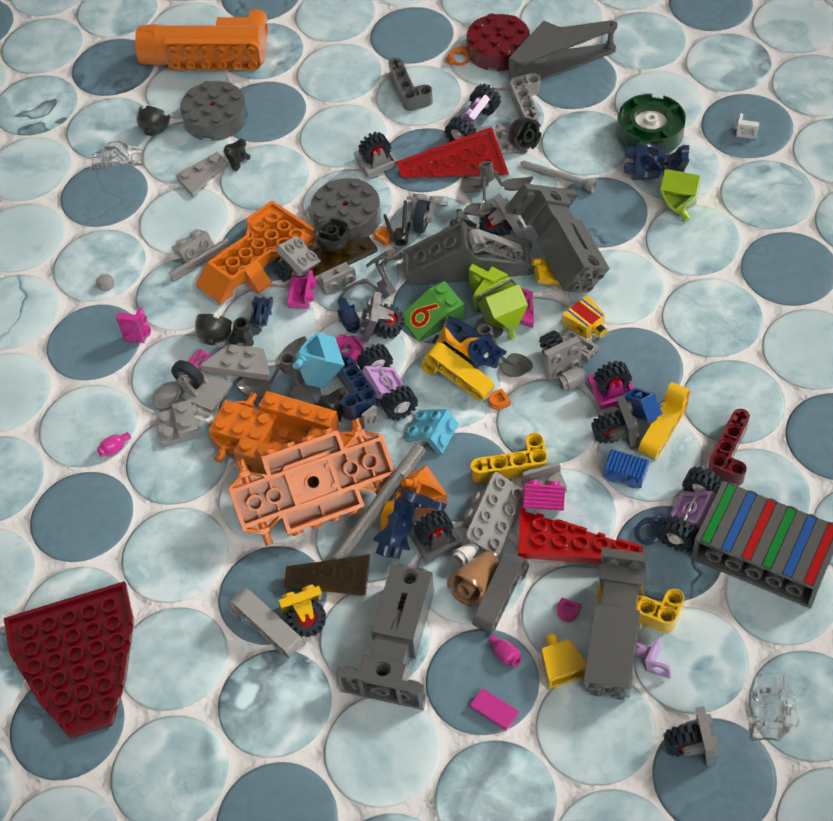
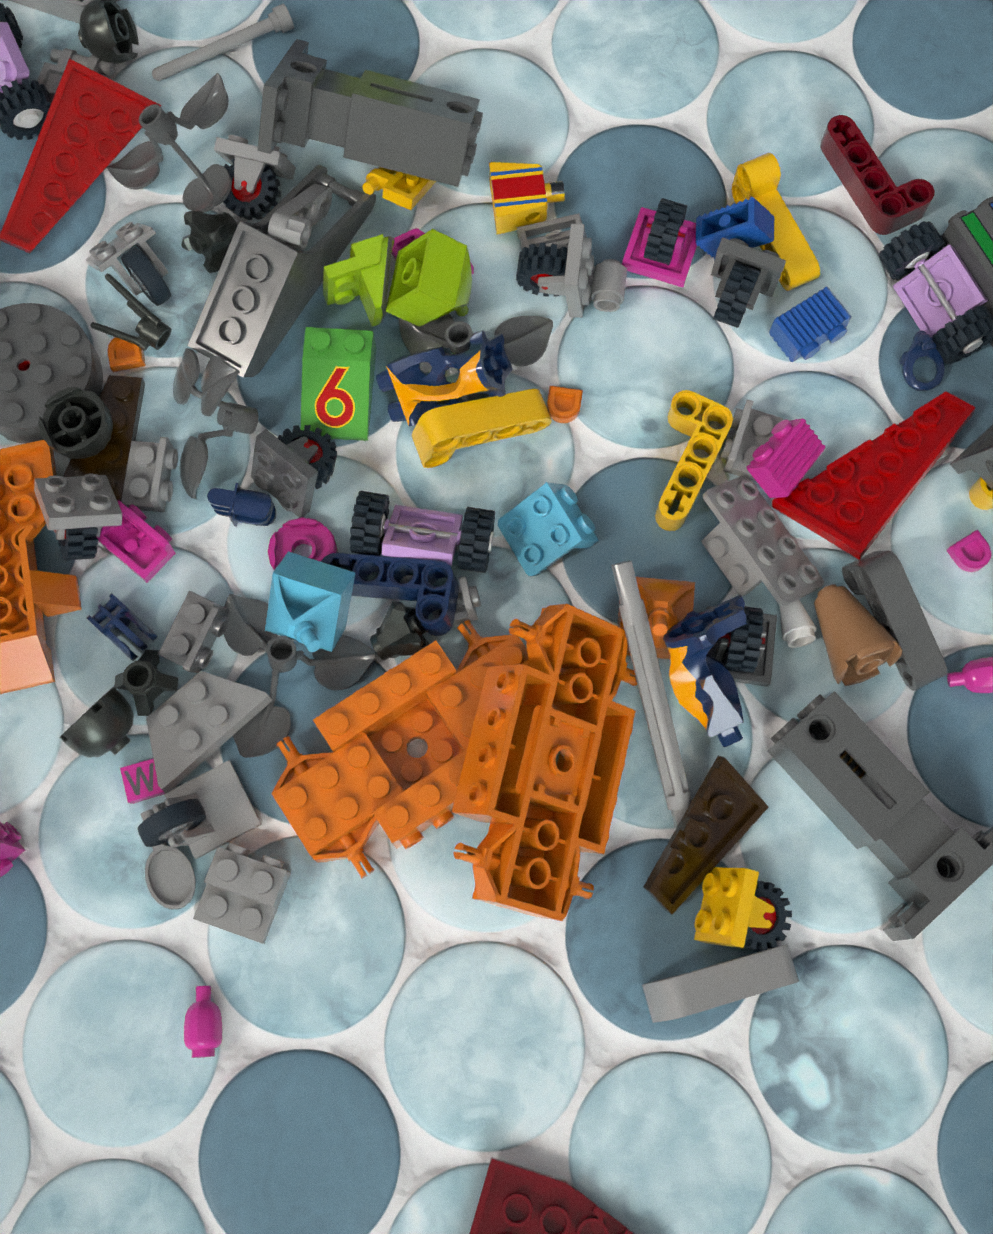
camera: 60 degrees left, 20 degrees up
(278, 335) = (195, 633): none -> flat silver bracket

